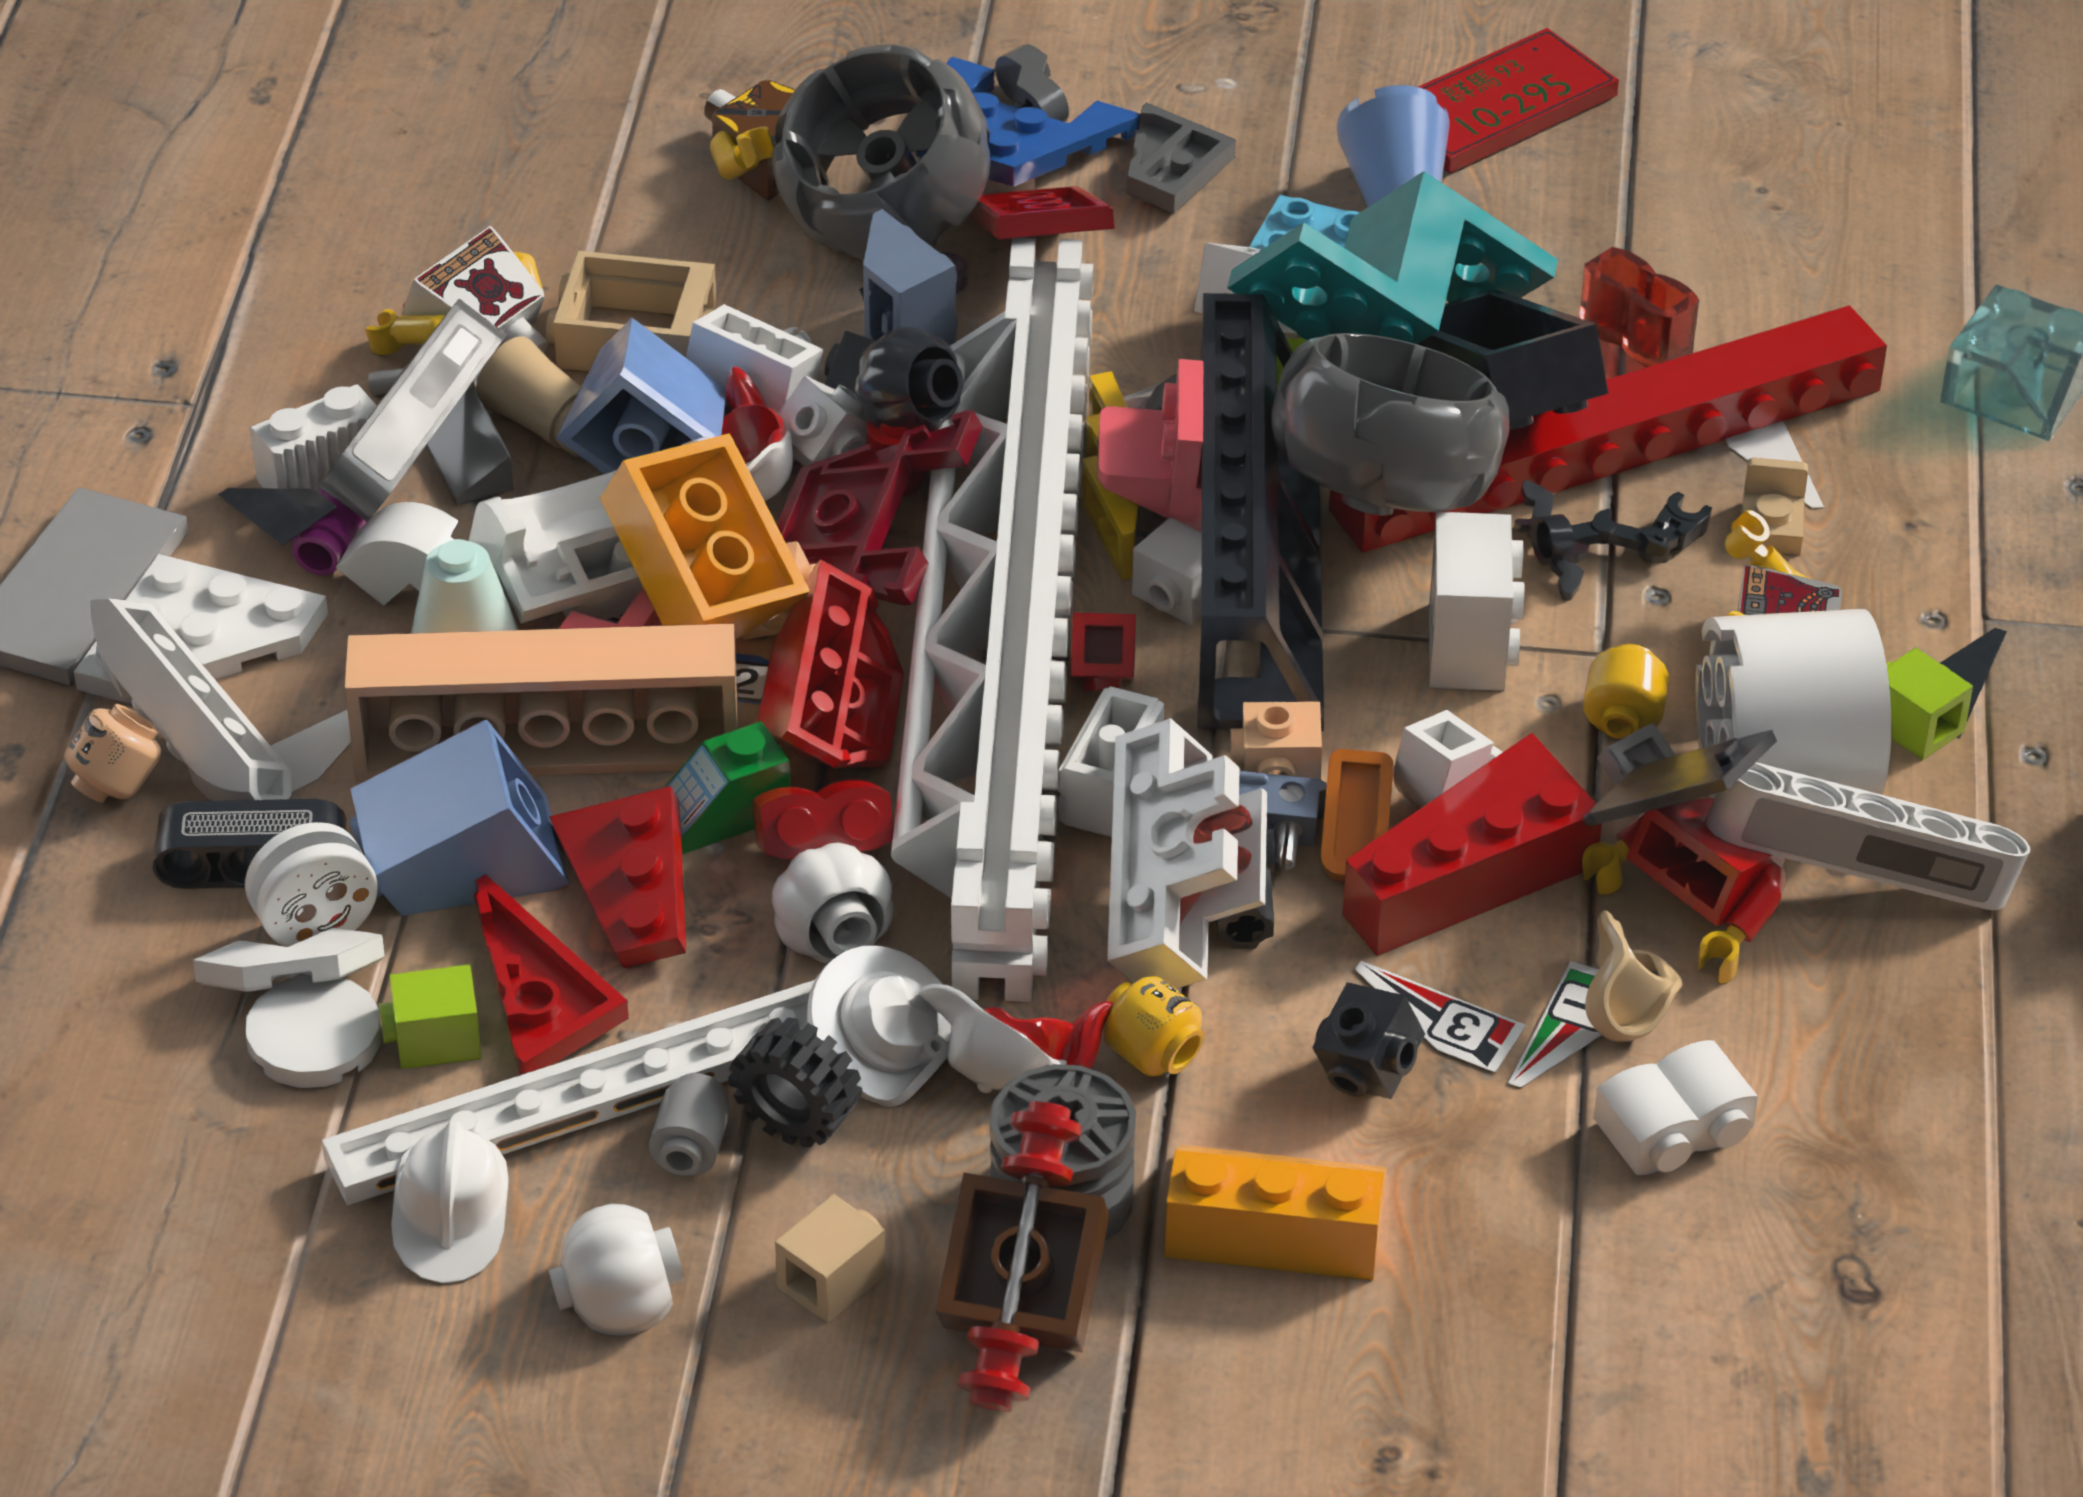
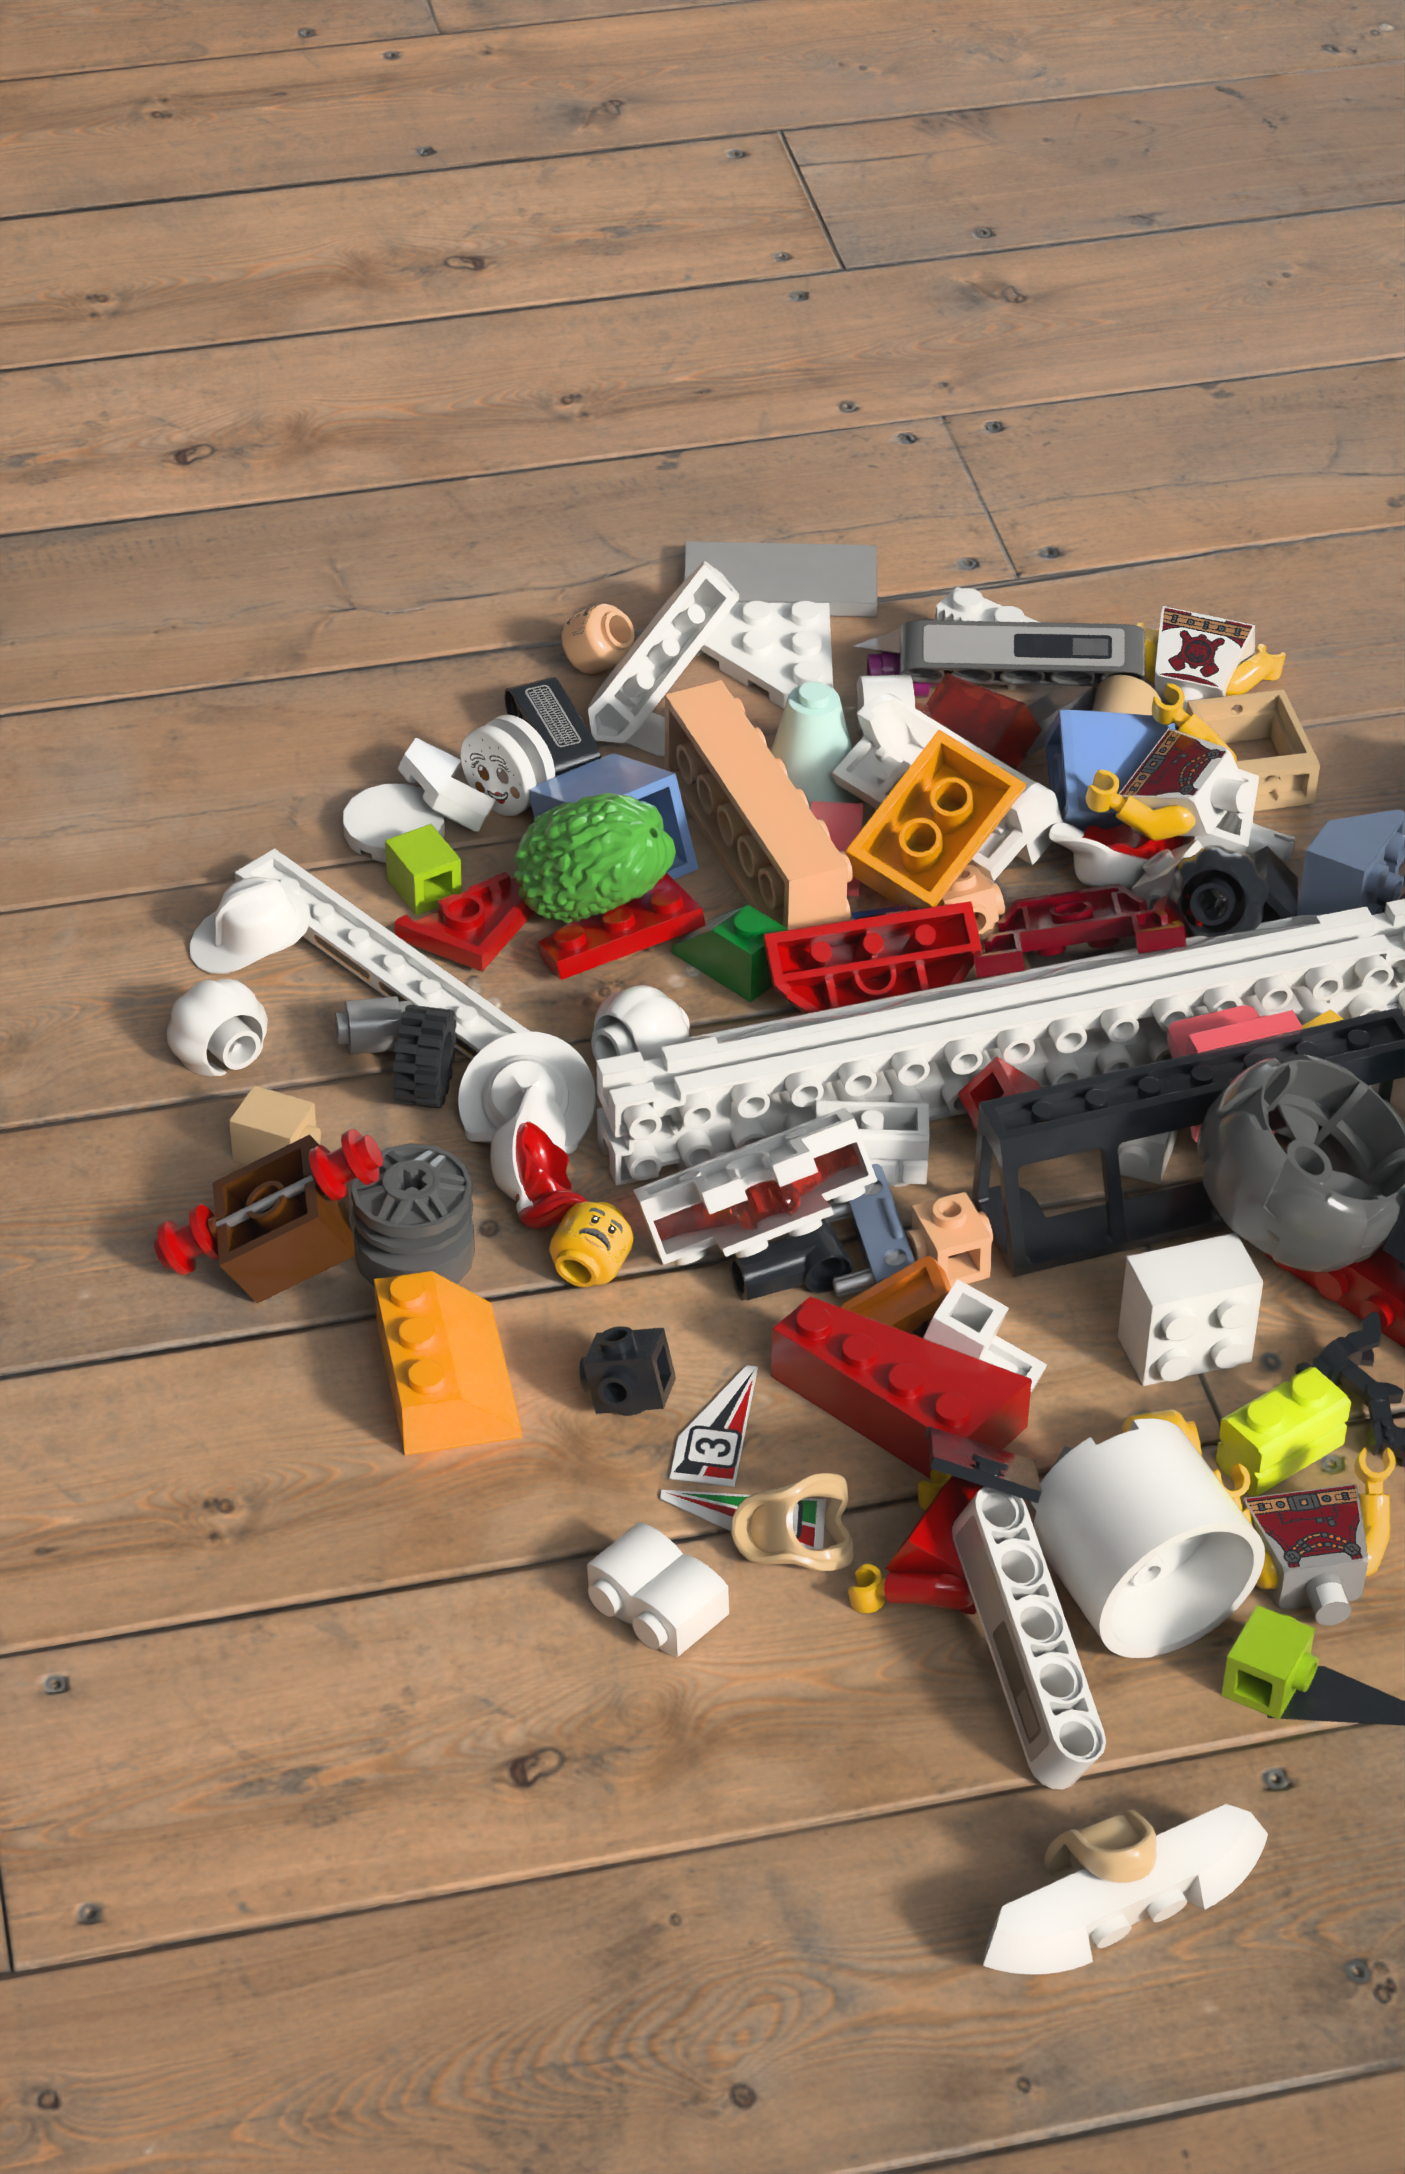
camera: 70 degrees right, 0 degrees up
(497, 467) = (984, 718): none -> clear red brick
(569, 836) = (592, 856): none -> bright green hair
(737, 339) = (1181, 783): none -> torso
(843, 812) = (713, 993): red brick -> none
(1636, 595) = (1284, 1430): none -> neon yellow brick

